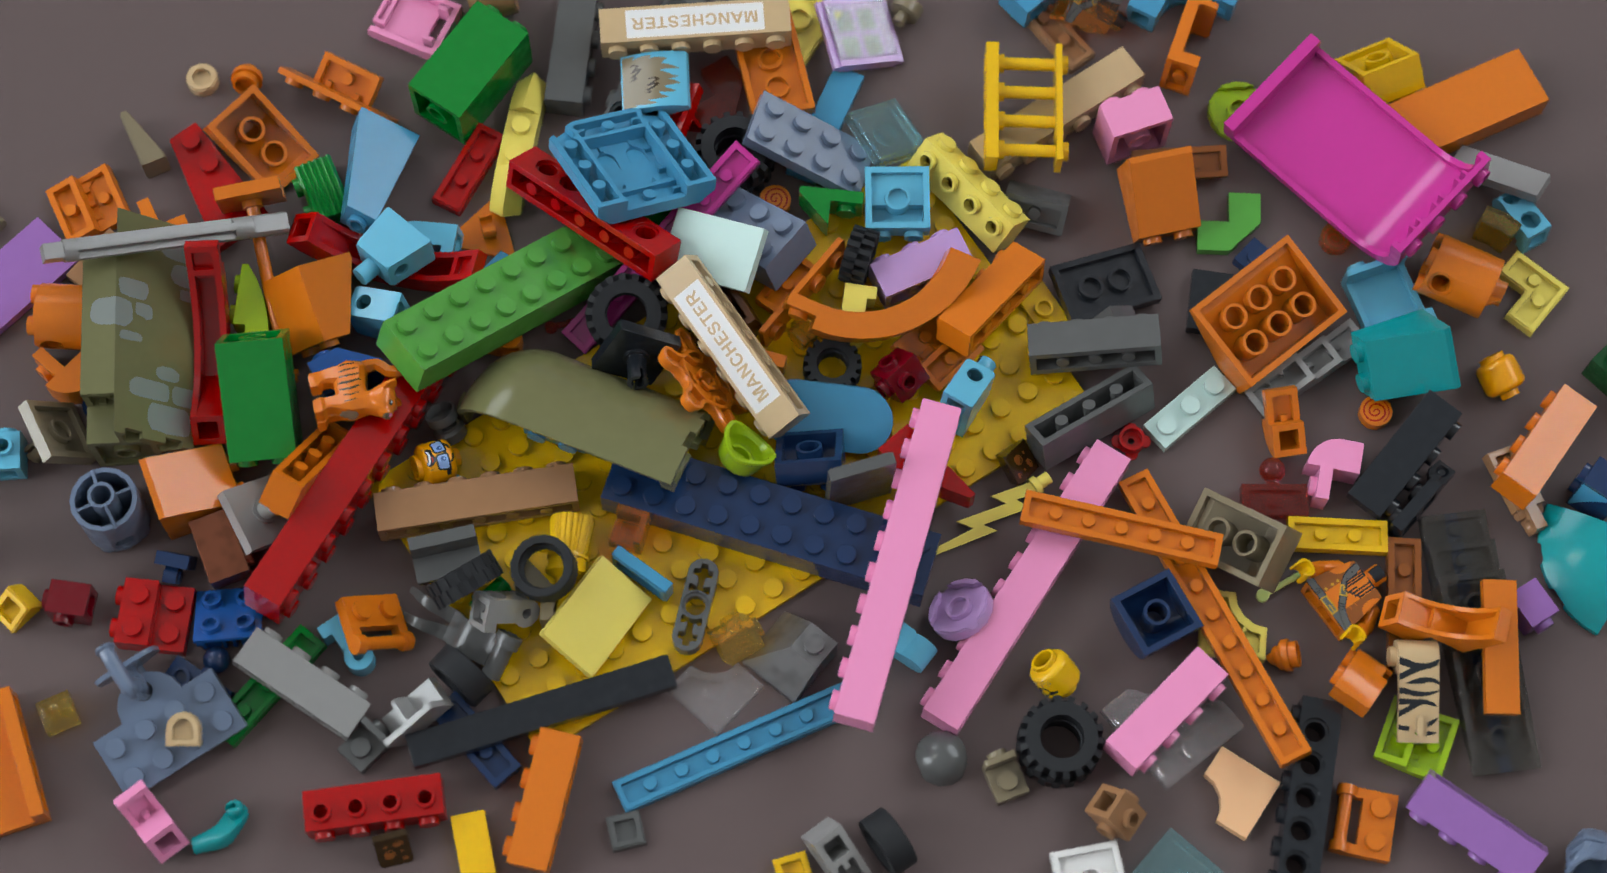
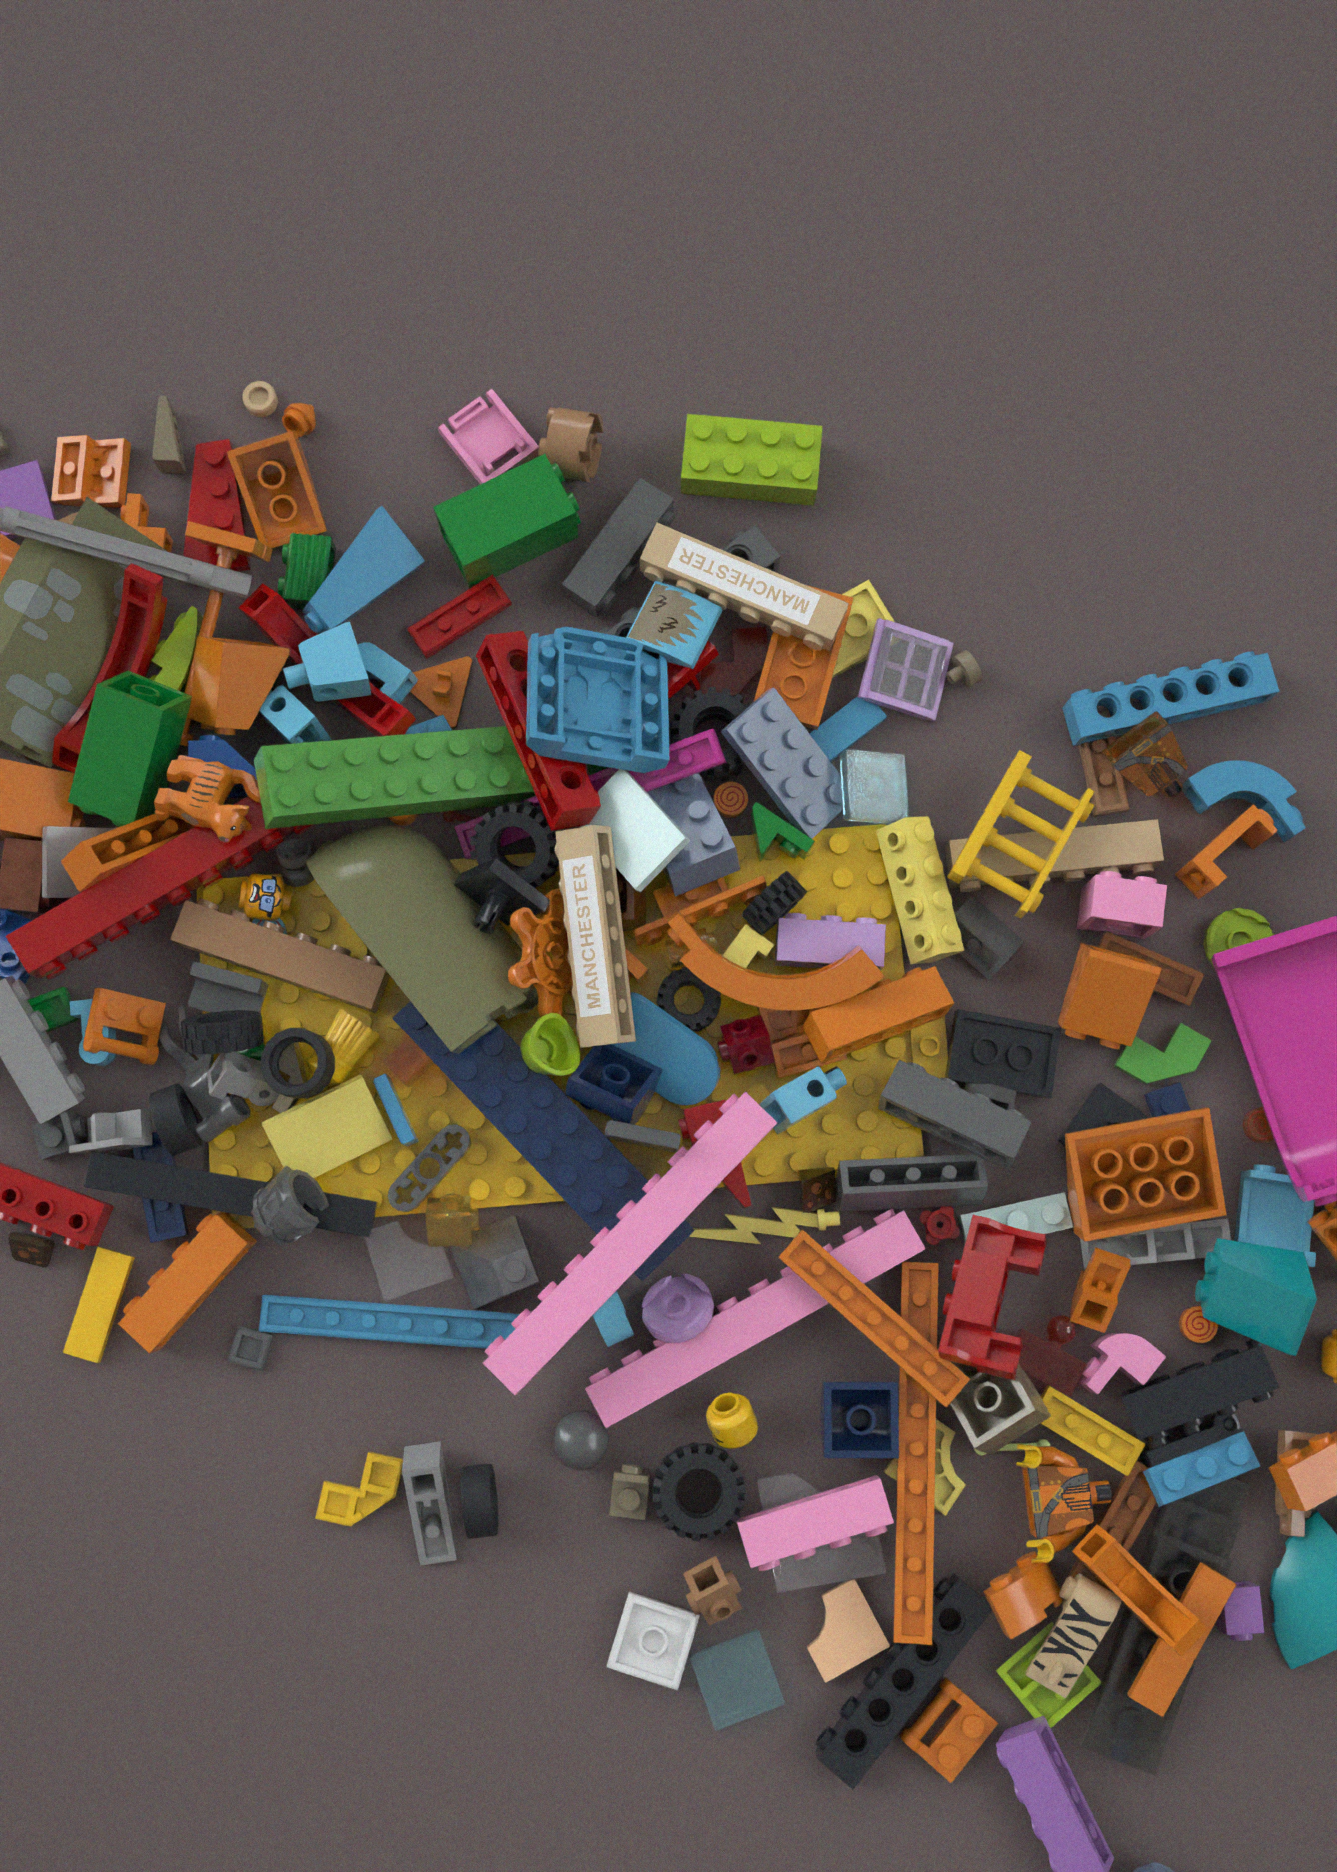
camera: 30 degrees right, 10 degrees up
(341, 81) = (384, 471): orange bracket -> none
(519, 135) = (520, 610): light yellow brick -> none
(598, 688) = (280, 1209): none -> dark grey helmet
(898, 201) = (843, 866): medium azure plate -> none
(1193, 472) = (979, 1292): none -> red bracket
(1285, 655) = (968, 1522): orange plate -> none
(1440, 514) = (1201, 1469): none -> dark azure plate

